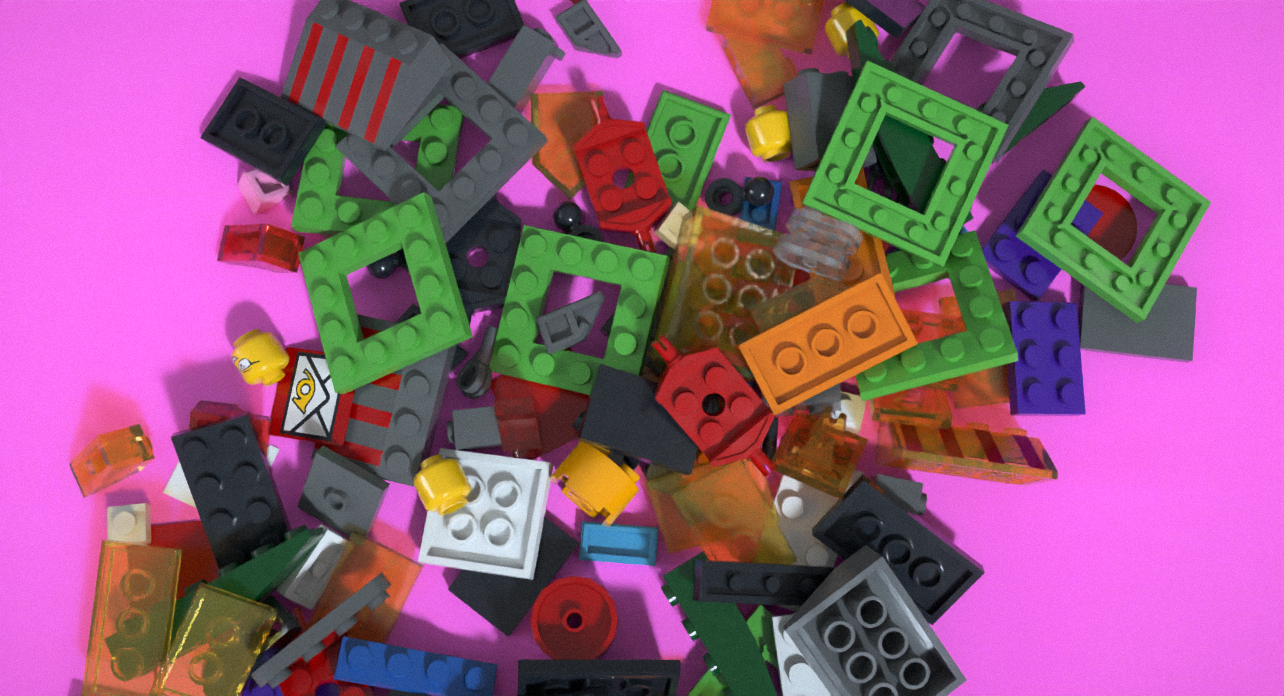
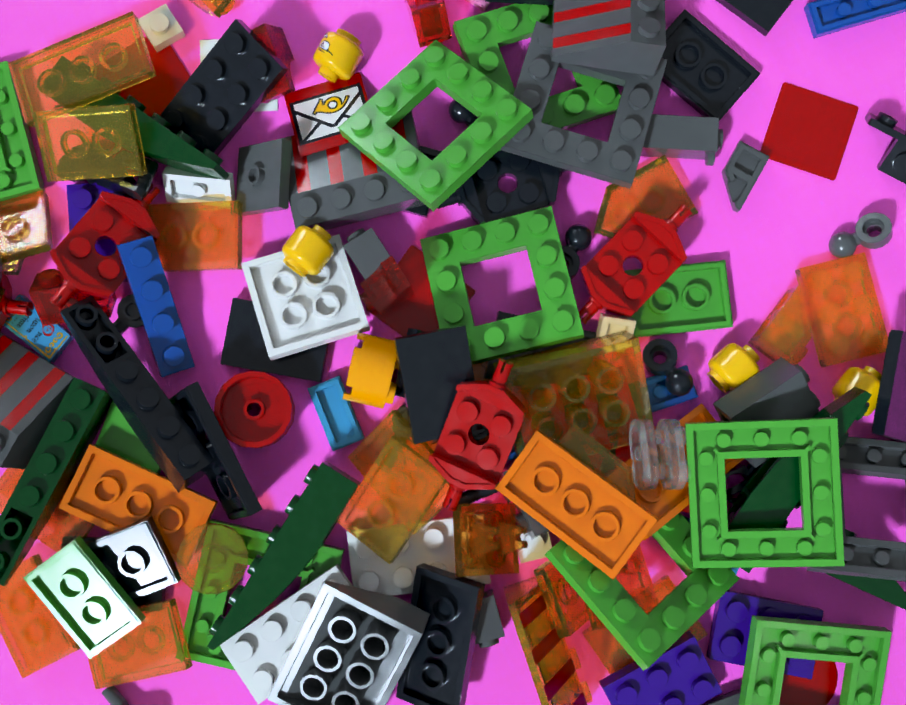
camera: 70 degrees right, 5 degrees up
(311, 643) = (132, 213): dark grey plate -> none
(476, 375) = (410, 231): dark grey plate -> none
(569, 323) = (488, 284): dark grey tile -> none
(756, 582) = (354, 541): black plate -> none

